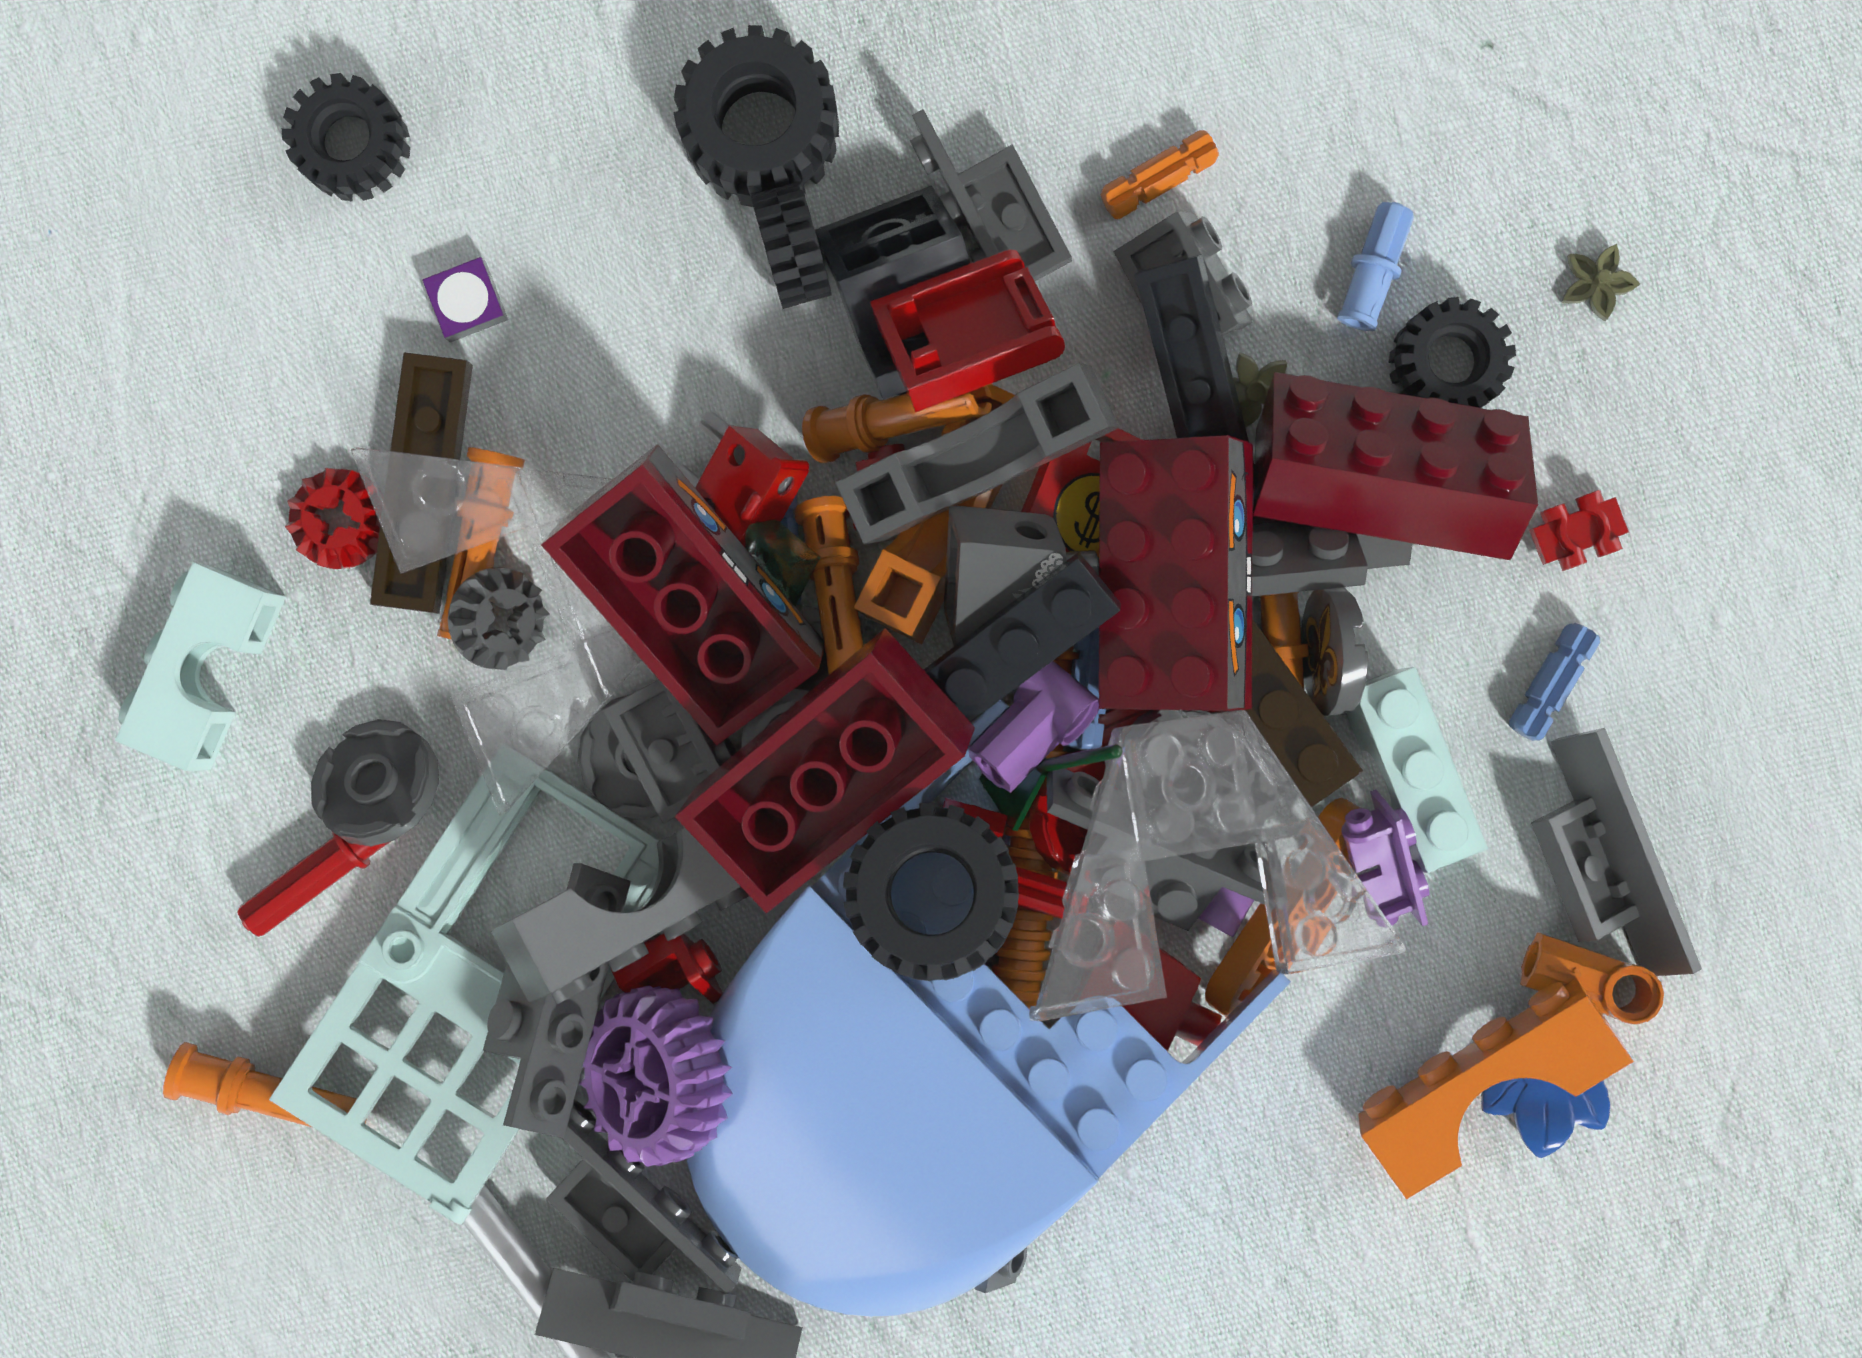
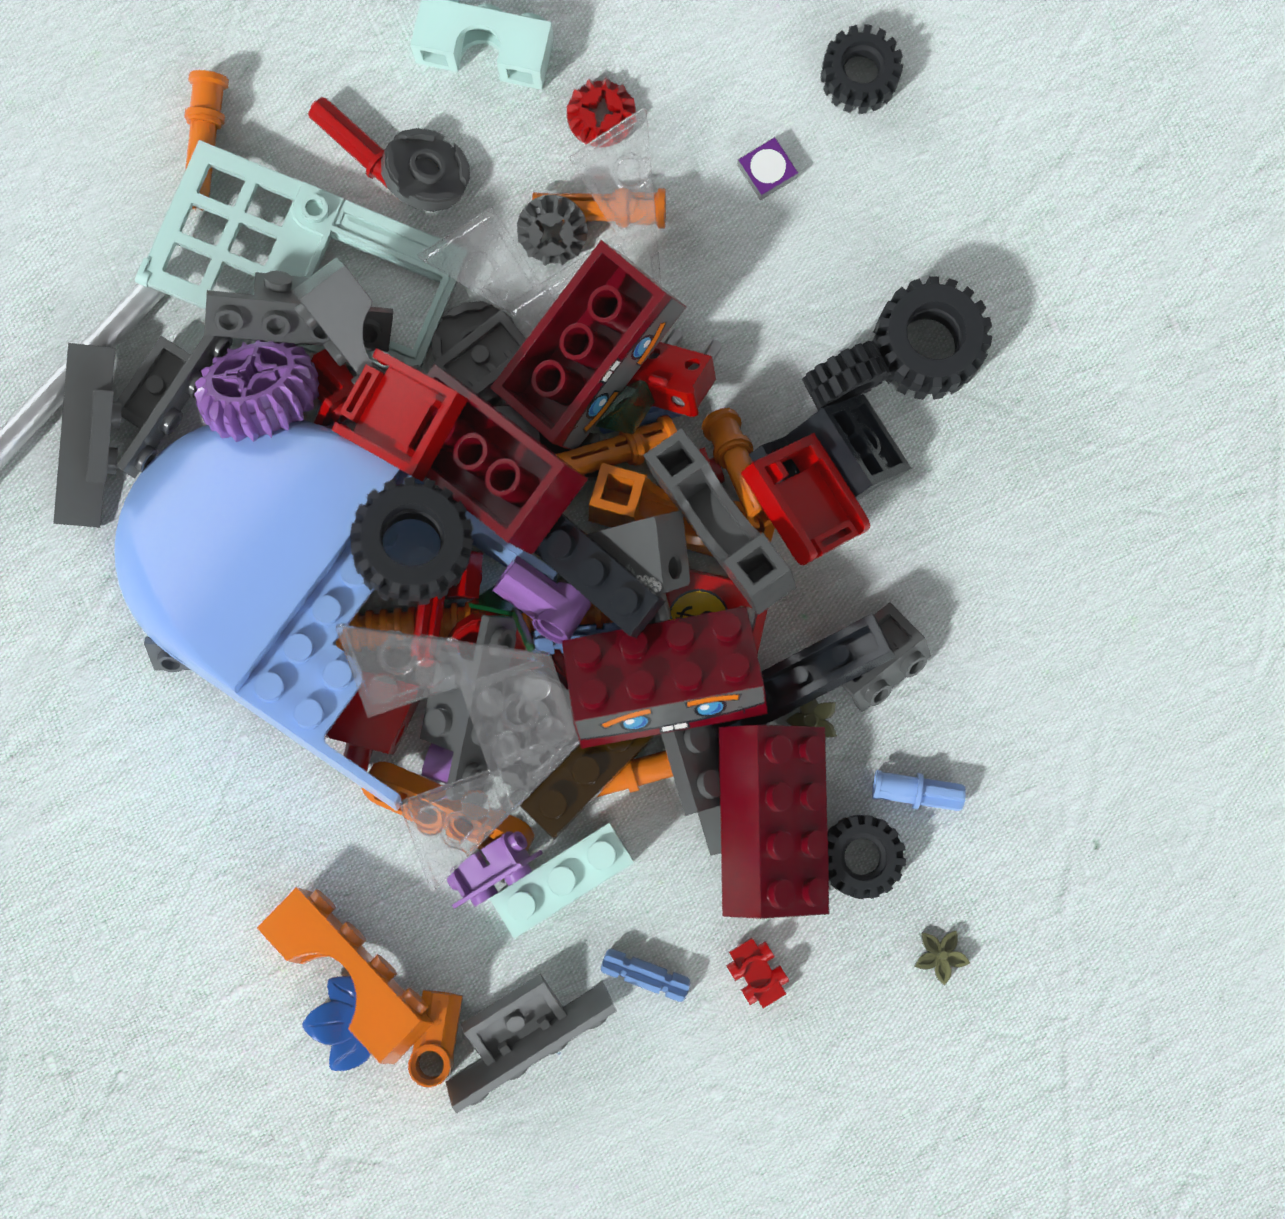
camera: 80 degrees right, 5 degrees down
(426, 423) = (673, 162): dark brown plate -> none
(734, 885) = (394, 411): none -> red container
(995, 204) = (902, 514): dark grey bracket -> none
(1159, 174) = (952, 625): orange axle -> none
(1335, 665) = (629, 806): dark grey tile -> none

